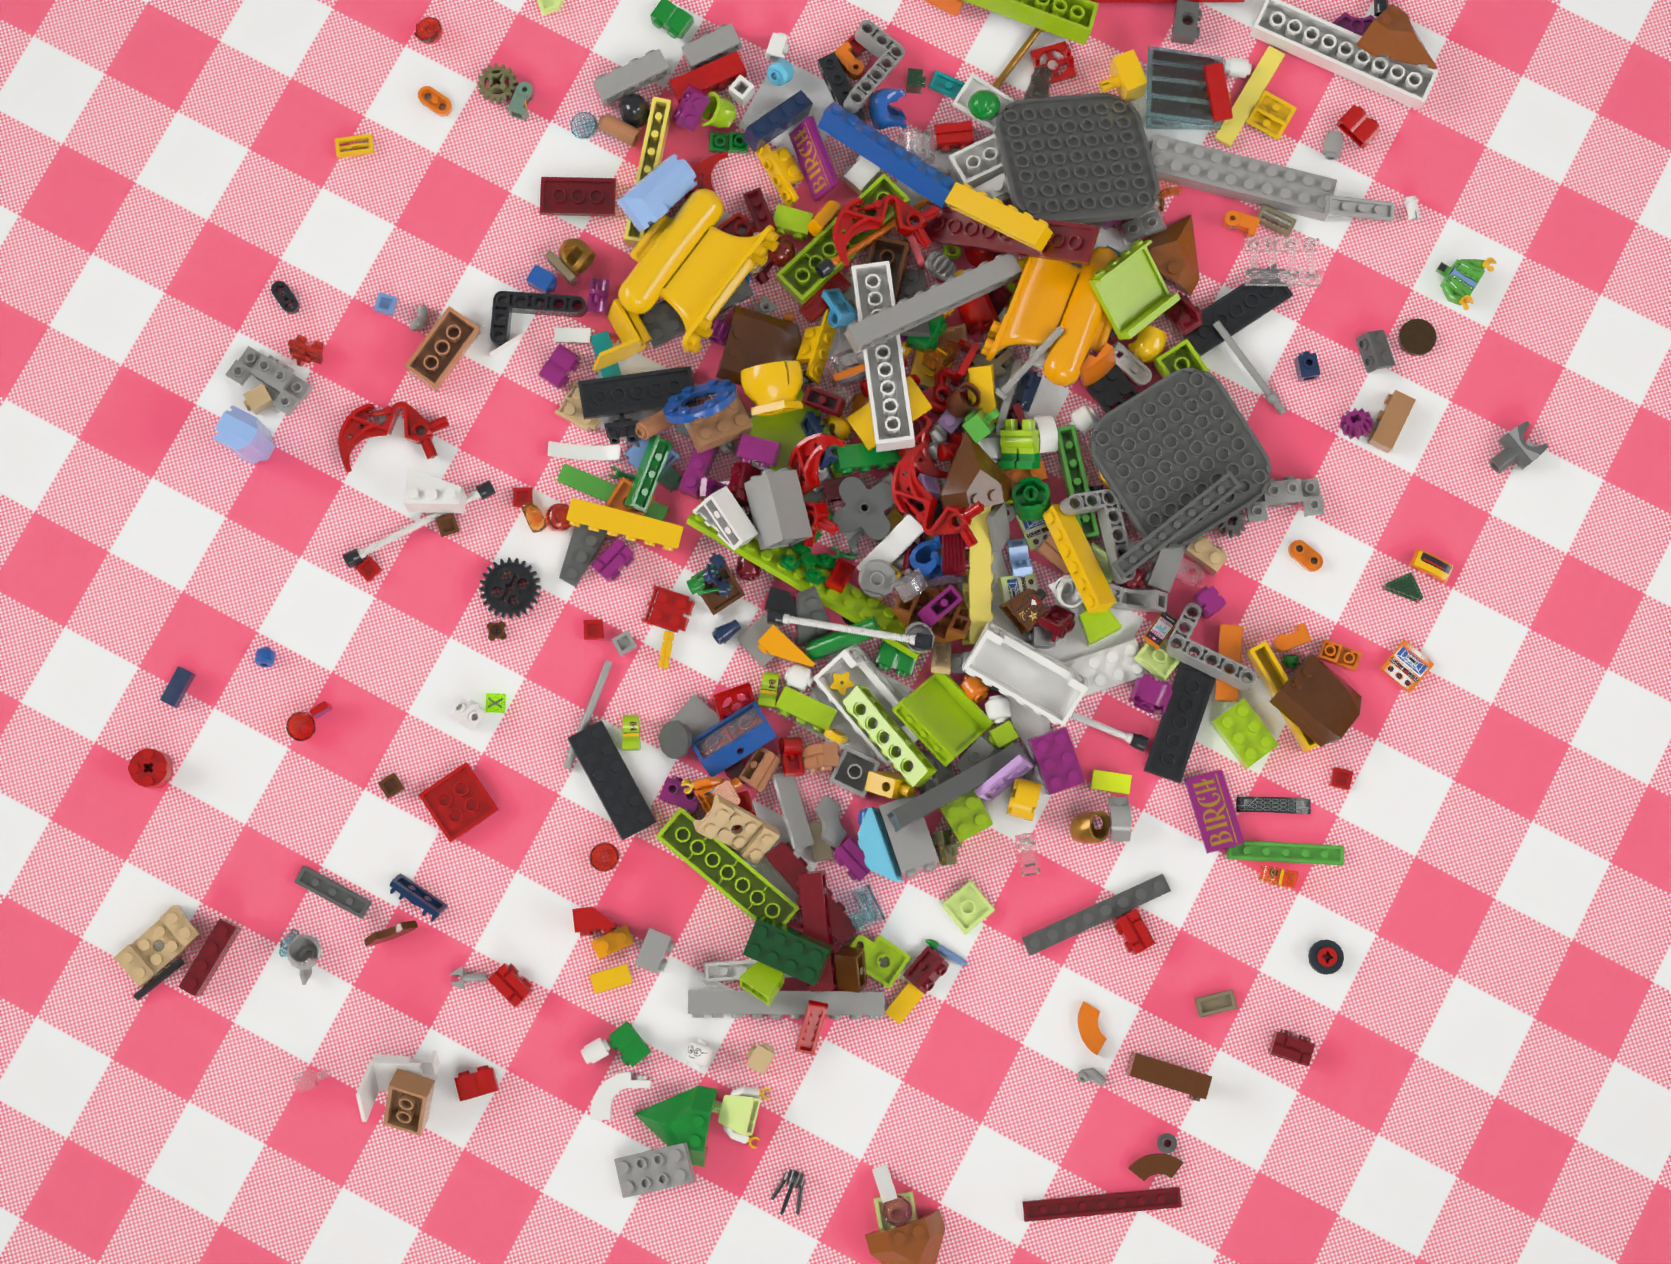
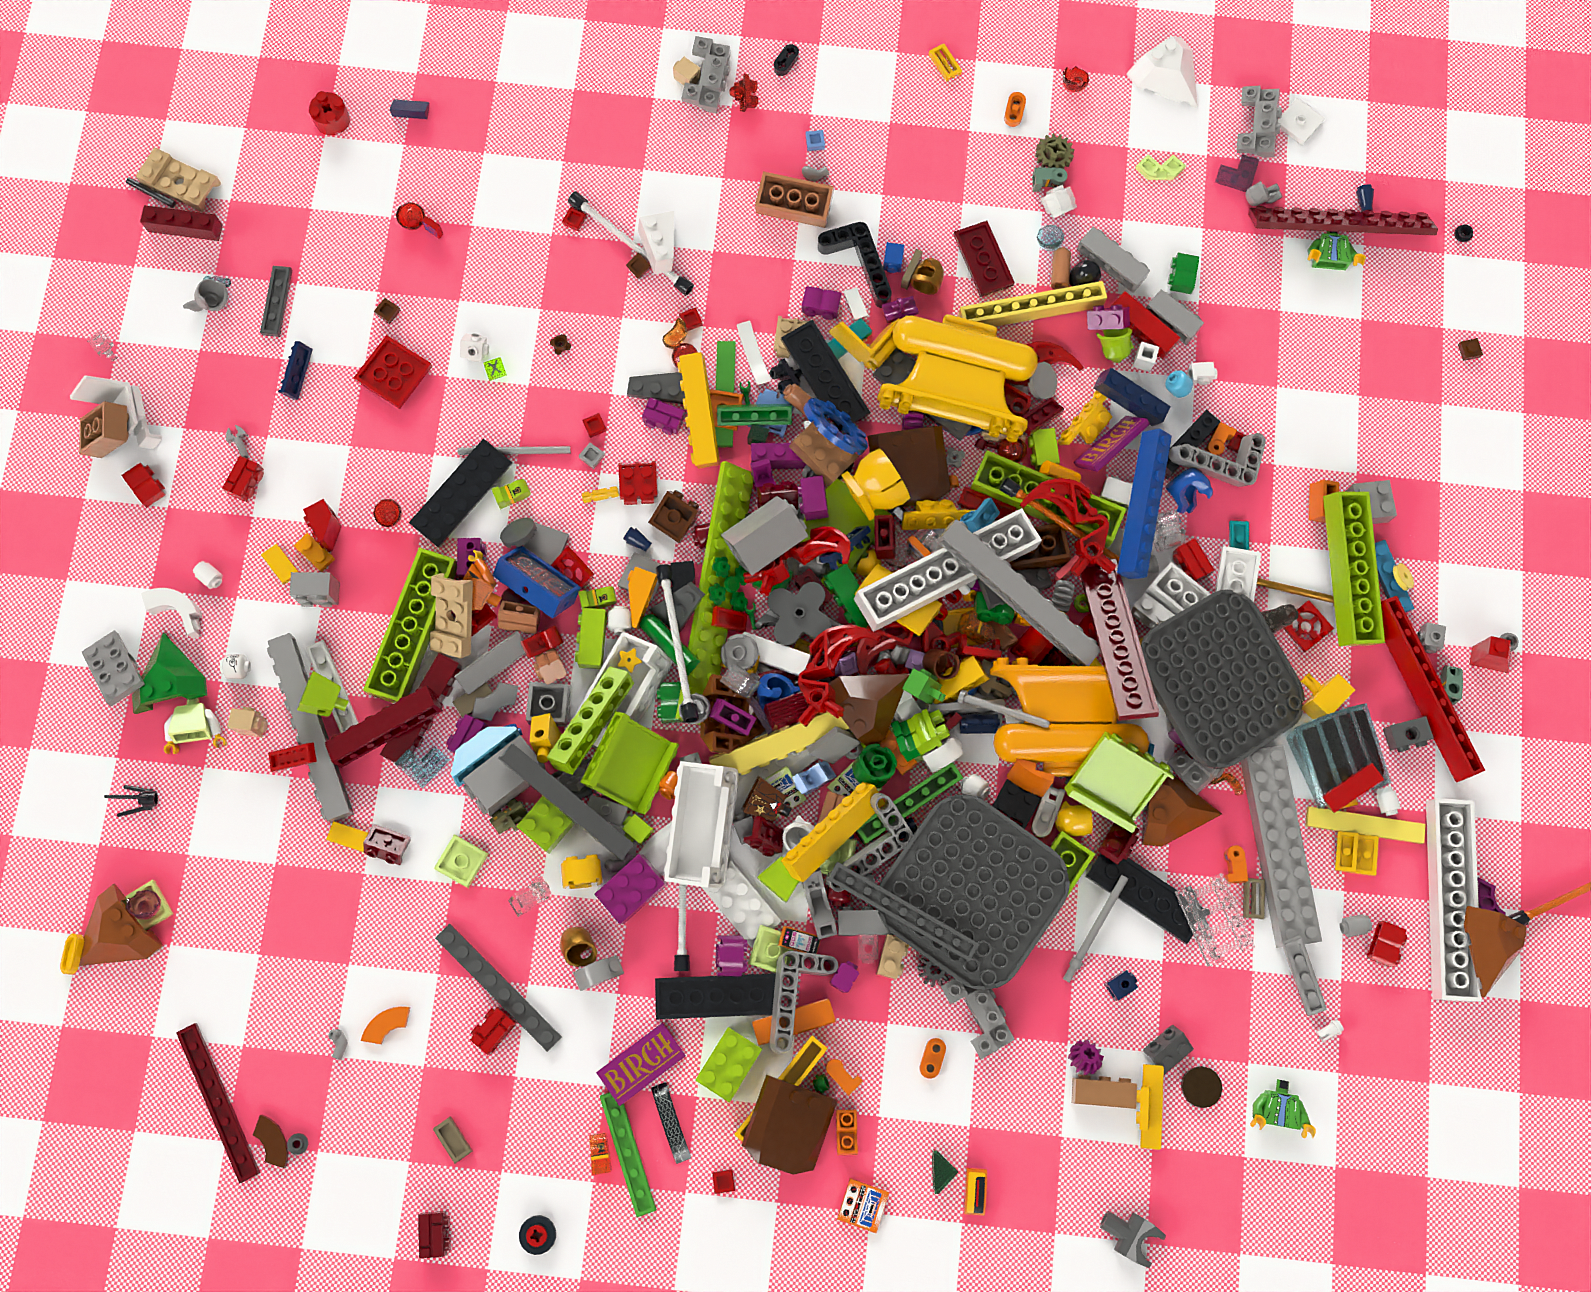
camera: 65 degrees right, 5 degrees down
(244, 435) = (644, 66): light blue brick -> none
(265, 657) = (462, 166): blue piece -> none
(390, 933) = (254, 360): reddish brown tile -> none
(412, 423) = (715, 202): red piece -> none
(505, 345) = (821, 251): white sticker -> none
(526, 595) = (605, 325): black gear -> none
(549, 101) = (1059, 201): none -> white hair
(629, 1044) = (224, 602): green brick -> none
(658, 192) = (1013, 314): light blue brick -> none
(710, 575) = (676, 498): plant -> none
(727, 143) = (1092, 365): green slope -> none
(727, 517) = (737, 494): white wedge -> none
(730, 194) = (1043, 381): none -> light grey tile
(788, 950) = (352, 704): dark green brick -> none
(836, 736) = (575, 673): yellow tile -> none
(850, 969) = (359, 772): reddish brown brick -> none
(880, 948) = (385, 787): lime plate -> none
(884, 1183) = (168, 883): white sticker -> none
(915, 81) = (1229, 506): clear green plate -> none
(941, 658) = (687, 742): tan plate -> none
(946, 952) = (410, 857): medium blue piece -> none
(984, 105) = (1235, 575): green hair -> none
(998, 216) = (1129, 623): yellow brick -> none
(998, 709) = (659, 814): white head -> none
(1004, 778) = (593, 844): lavender tile -> none
(1111, 782) = (632, 951): neon yellow tile -> none
(1169, 1076) = (360, 1119): reddish brown brick -> none
(1417, 385) = (1151, 1107): none -> yellow bracket

